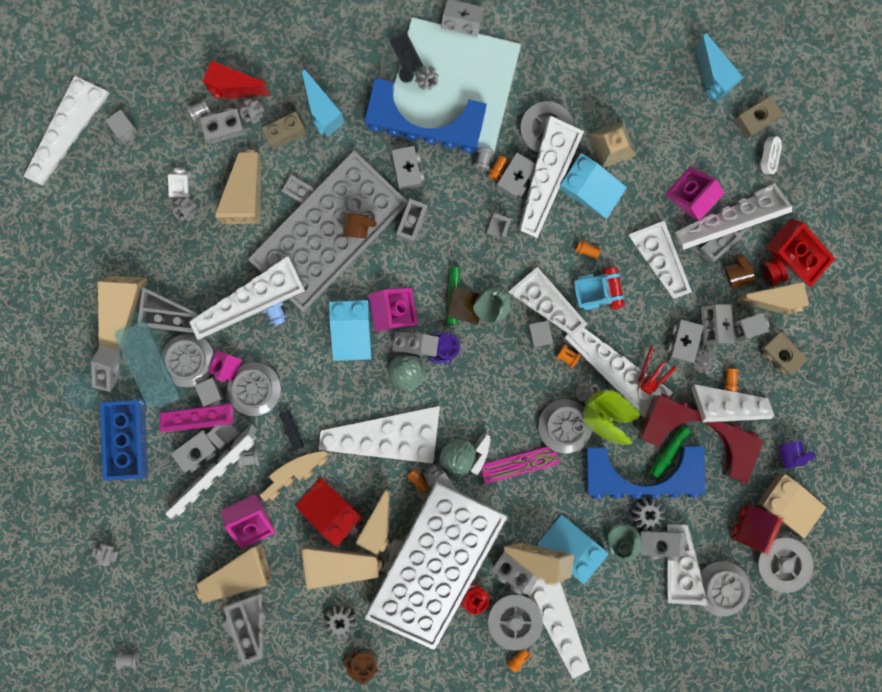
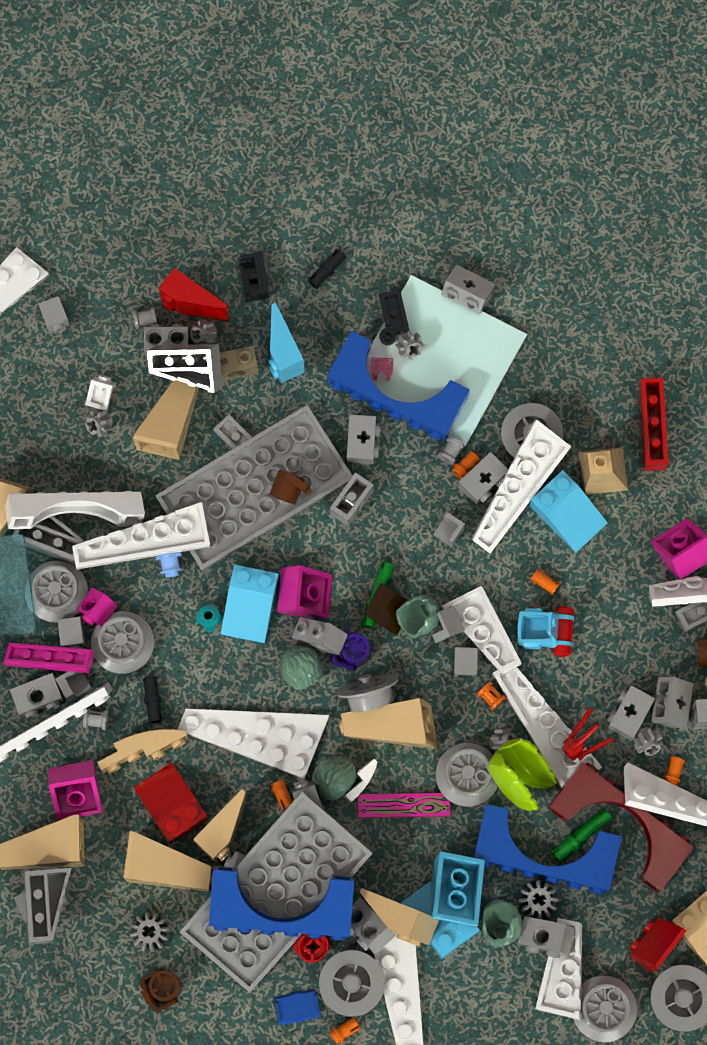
camera: 15 degrees right, 10 degrees down
(144, 300) = (120, 508): none -> white arch
(246, 140) = (192, 364): none -> light grey wedge
(281, 51) = (254, 276): none -> black hinge
(321, 356) = (211, 623): none -> teal brick
(340, 29) = (326, 268): none -> black pin
(406, 593) = (232, 909): none -> blue arch
(408, 100) = (381, 364): none -> clear pink tile
(468, 380) = (369, 692): none -> light grey wheel
(475, 649) = (297, 1007): none -> blue piece
(496, 401) = (396, 723): none -> tan slope
(520, 305) = (451, 624): none -> light grey panel
(582, 526) = (456, 888): none -> medium azure slope
(645, 95) = (653, 424): none -> red brick
(662, 257) = (627, 607): white wing -> none

